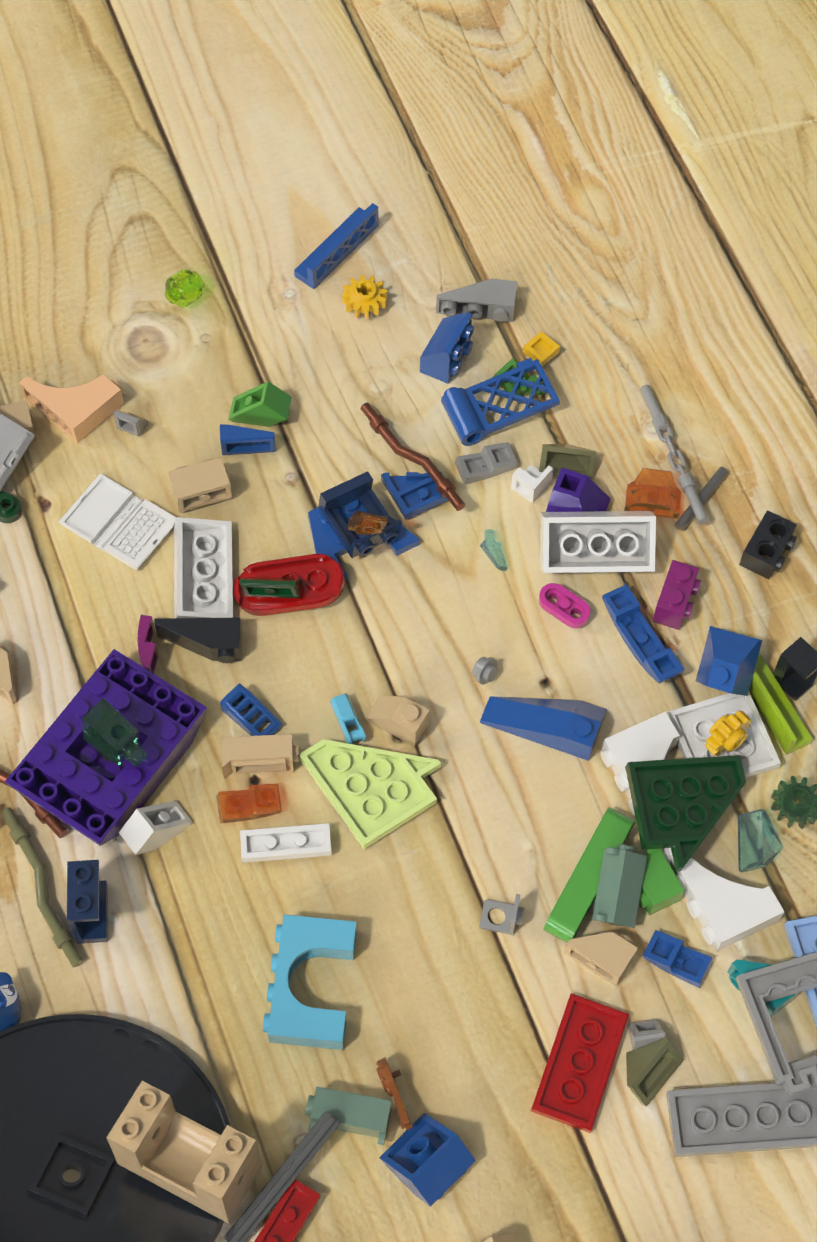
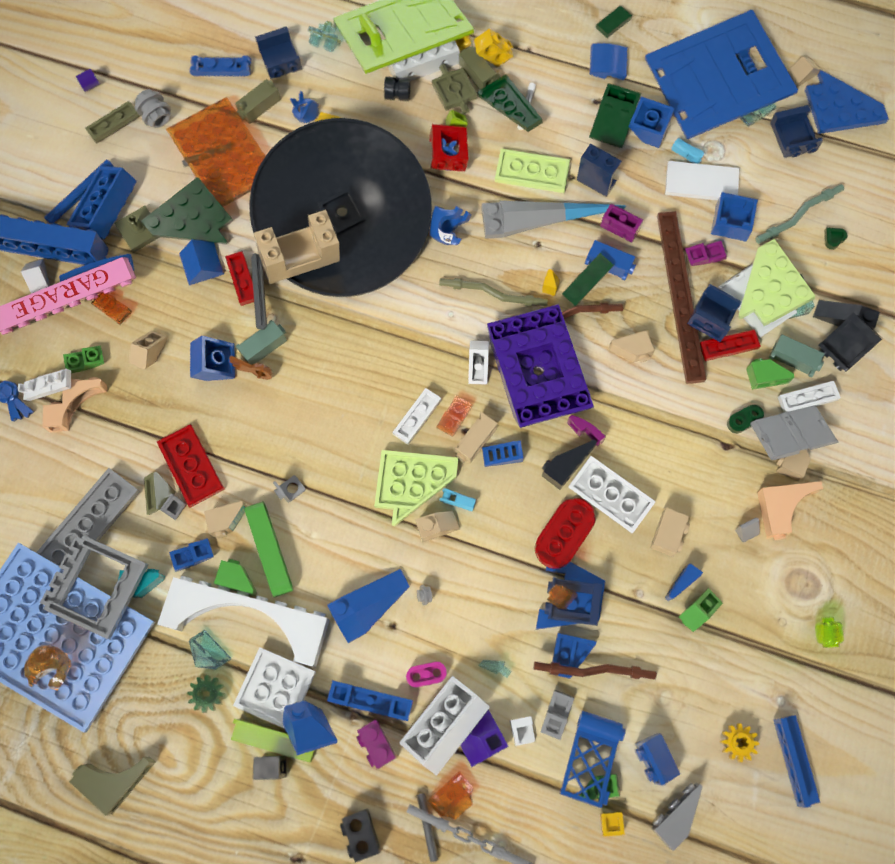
camera: 135 degrees right, 10 degrees up
(87, 902) = (461, 297): dark blue panel -> none
(112, 734) = (534, 361): clear green torso -> none
(118, 521) = (682, 475): white piece -> none
(271, 587) = (569, 518): dark green slope -> none
(289, 1019) = (328, 350): medium azure arch -> none
(569, 457) = (519, 766): olive slope -> none
(619, 886) = (244, 551): sand green brick -> none
(682, 800) = (255, 625): dark green wing -> none
(728, 733) = (266, 684): yellow gear -> none

